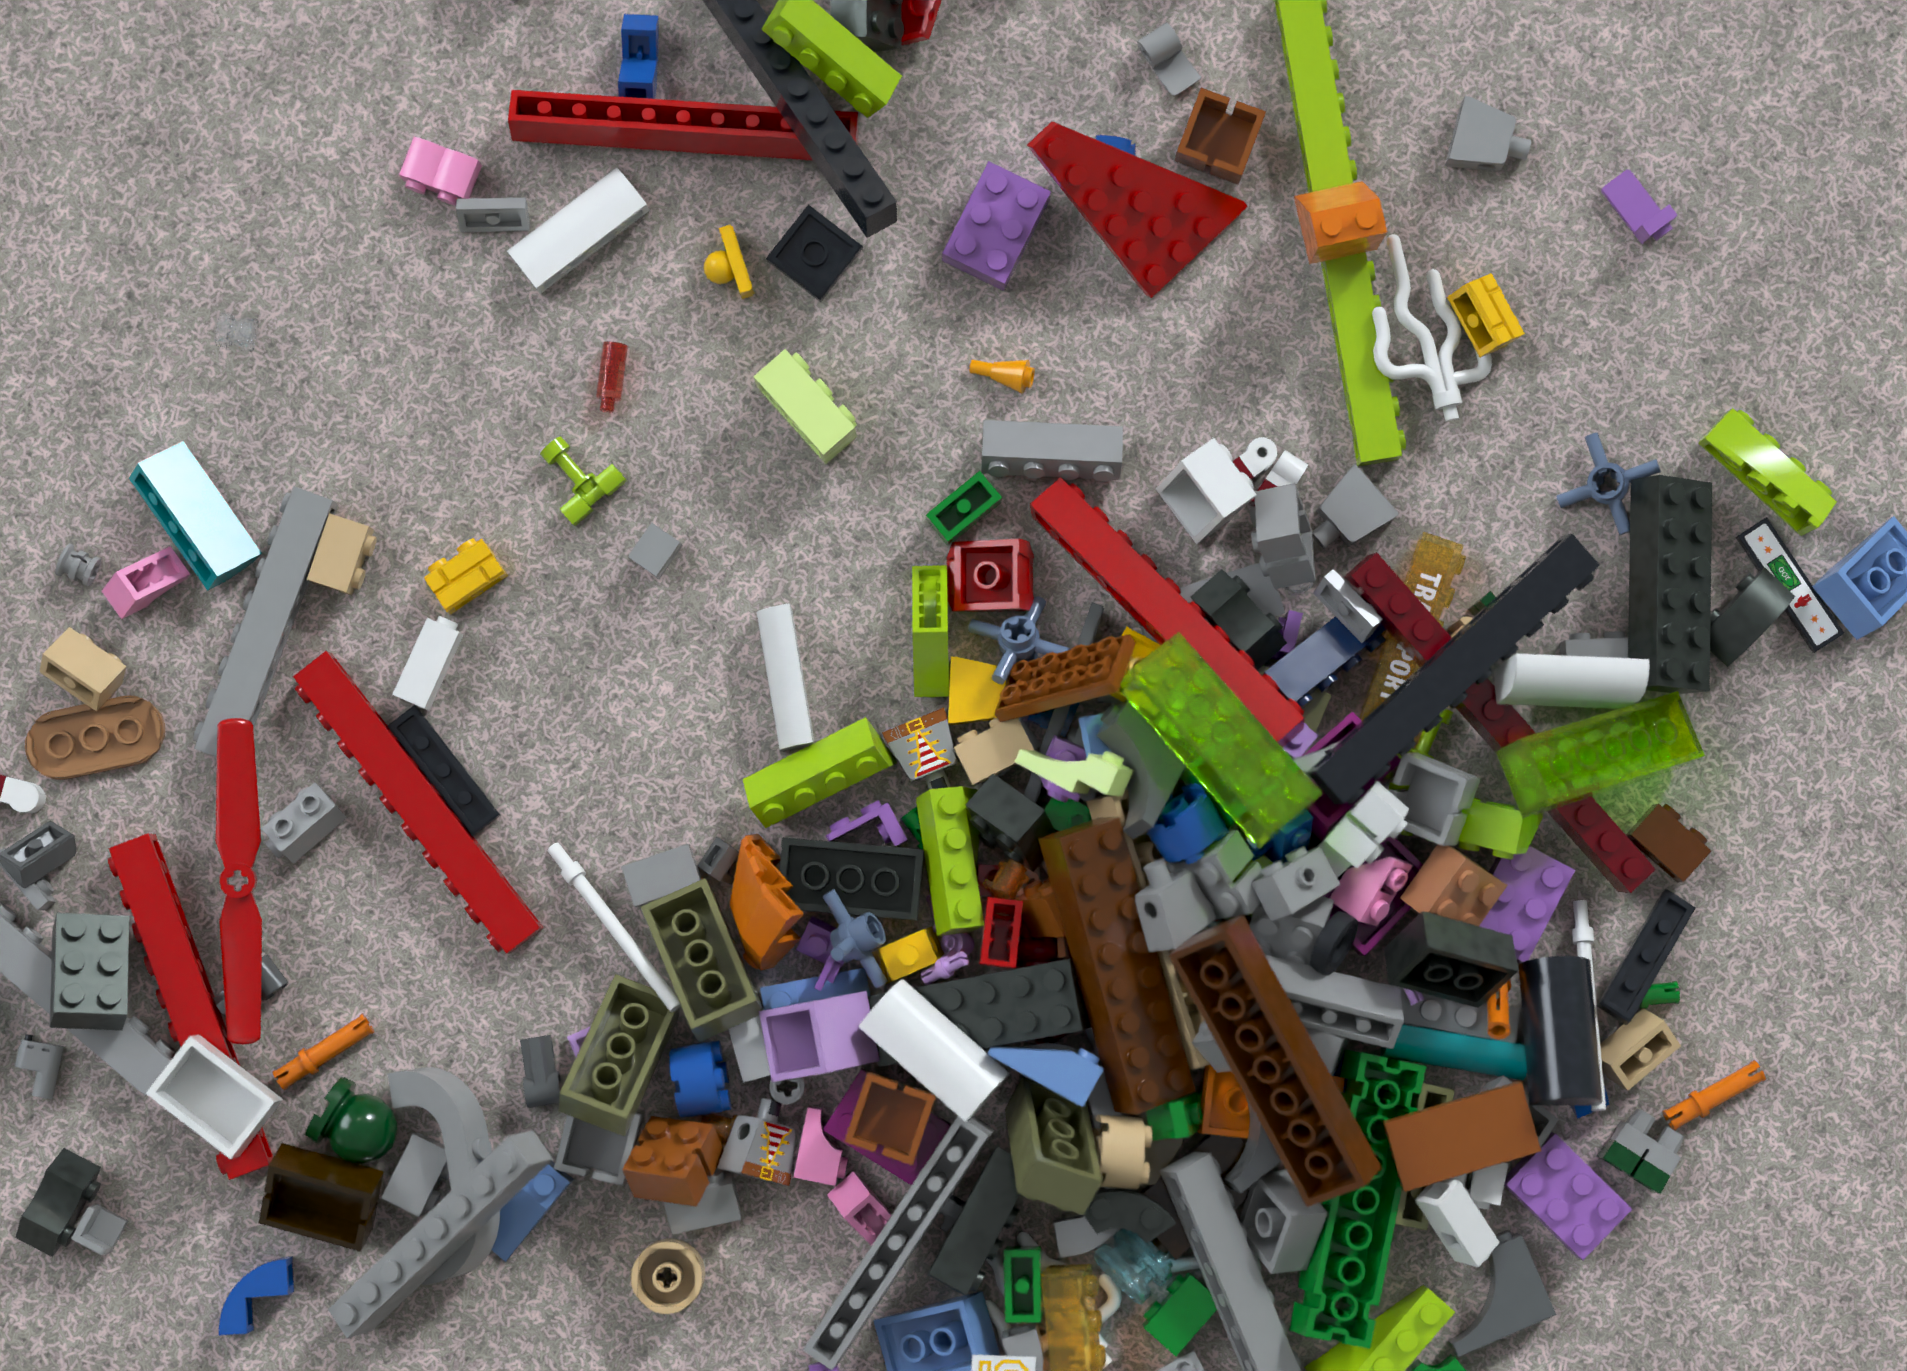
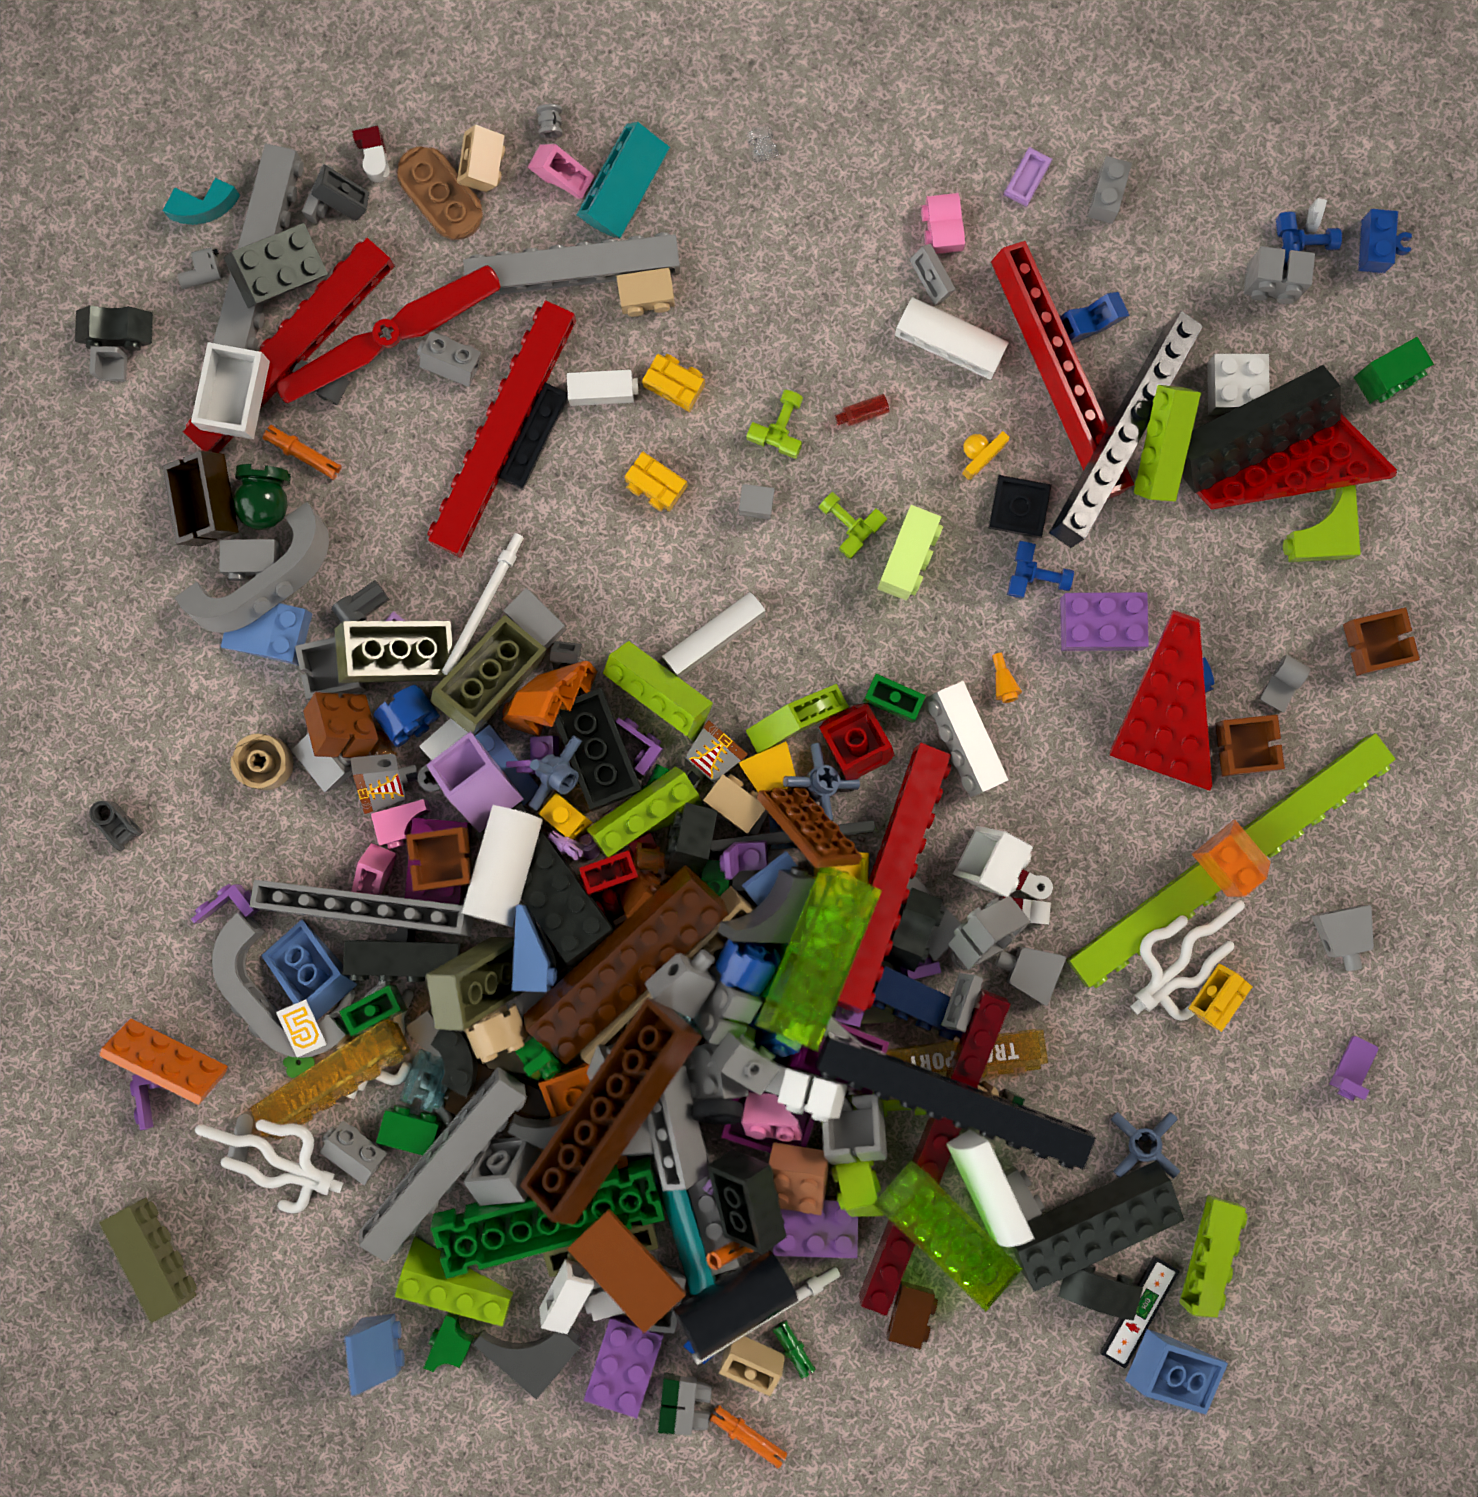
camera: 65 degrees right, 0 degrees up
(266, 1280) = (129, 494): blue brick -> none
(433, 46) = (1027, 176): none -> lavender tile
(440, 1233) = (211, 590): light grey brick -> none
(572, 656) = (656, 482): none -> yellow brick
(747, 450) = (858, 529): none -> lime bar
(893, 282) = (1027, 570): none -> blue bar
(1097, 771) = (753, 883): yellowish green slope -> none
(1646, 957) = (821, 1339): black tile -> none

